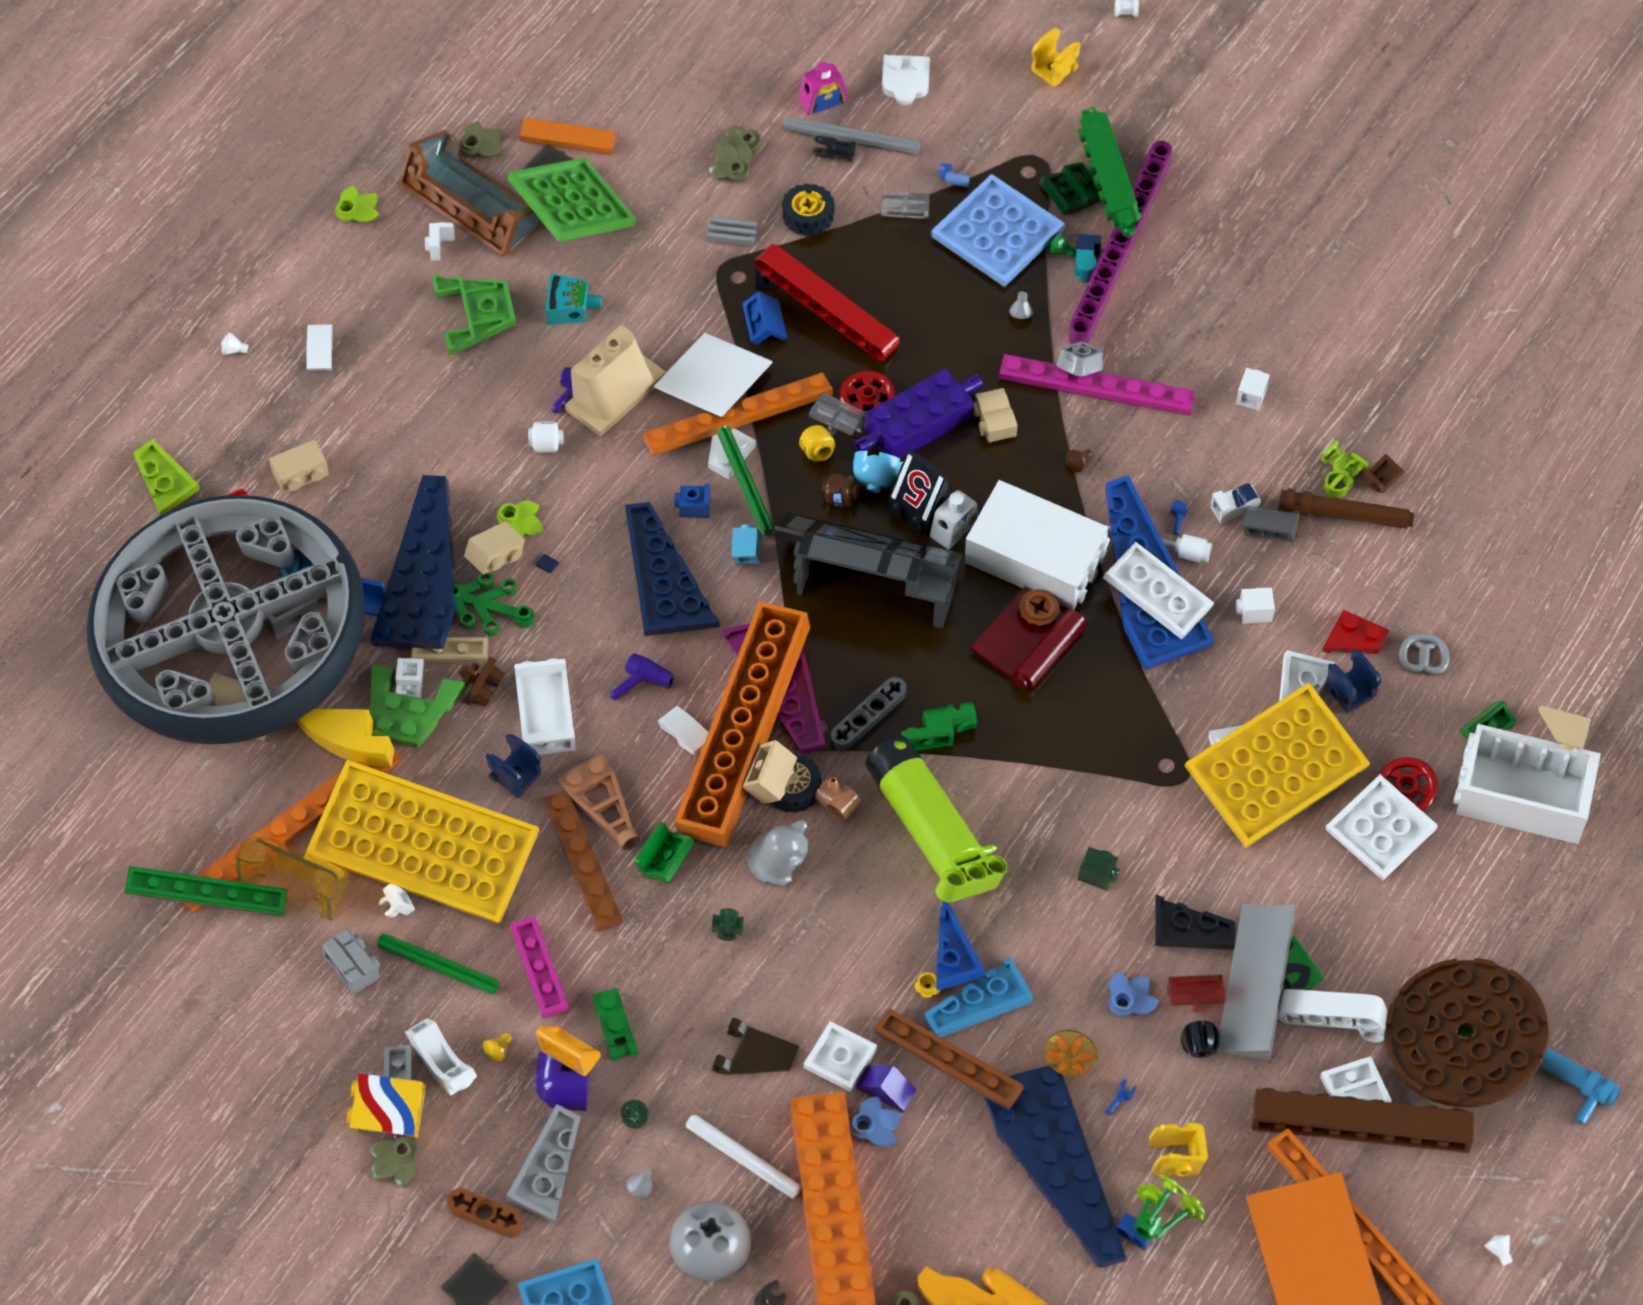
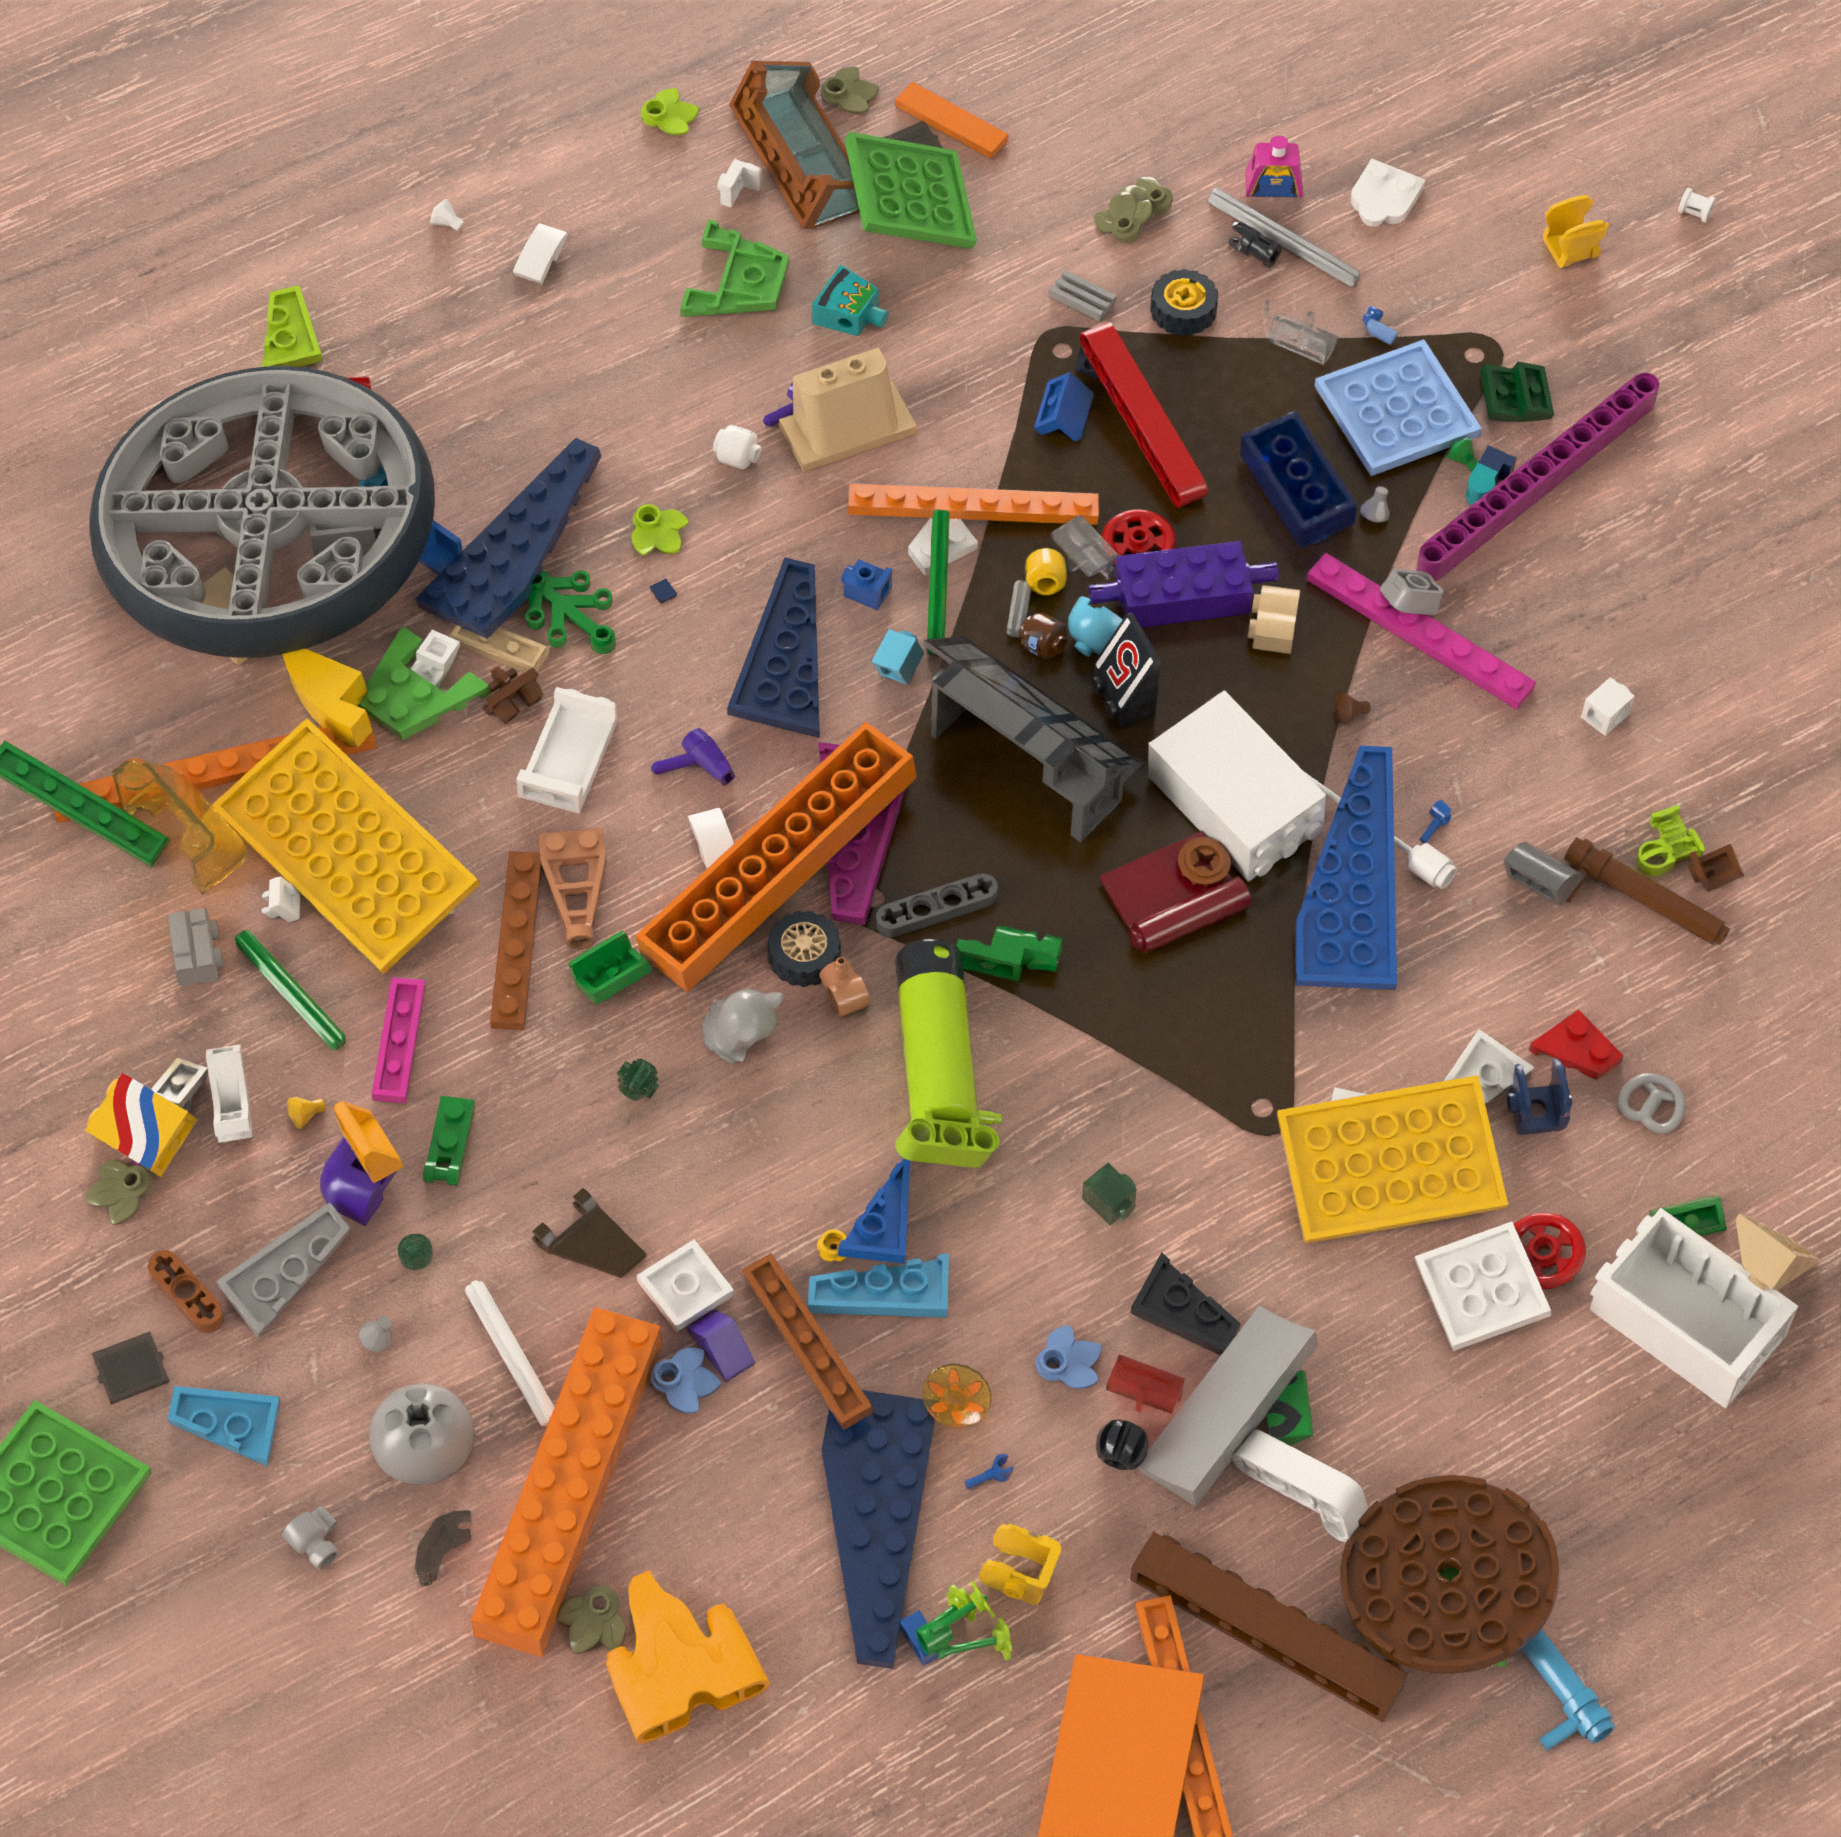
camera: 25 degrees right, 0 degrees up
(299, 466) = (442, 376): tan brick -> none
(494, 548) = (607, 548): tan brick -> none
(522, 758) = (508, 797): dark blue piece -> none
(713, 374) = (968, 448): white sticker -> none
(769, 772) = (774, 923): tan brick -> none
(811, 477) = (1018, 607): none -> light grey axle
(953, 519) = (1154, 715): white torso -> none
(959, 308) = (1298, 479): none -> clear blue brick
(1110, 171) = (1566, 386): green hinge -> none
(1158, 590) = (1357, 896): white tile -> none
(1234, 502) = (1507, 831): white leg -> none
(1256, 605) = (1471, 962): white brick -> none
(1357, 1080) = (1286, 1575): white wing -> none

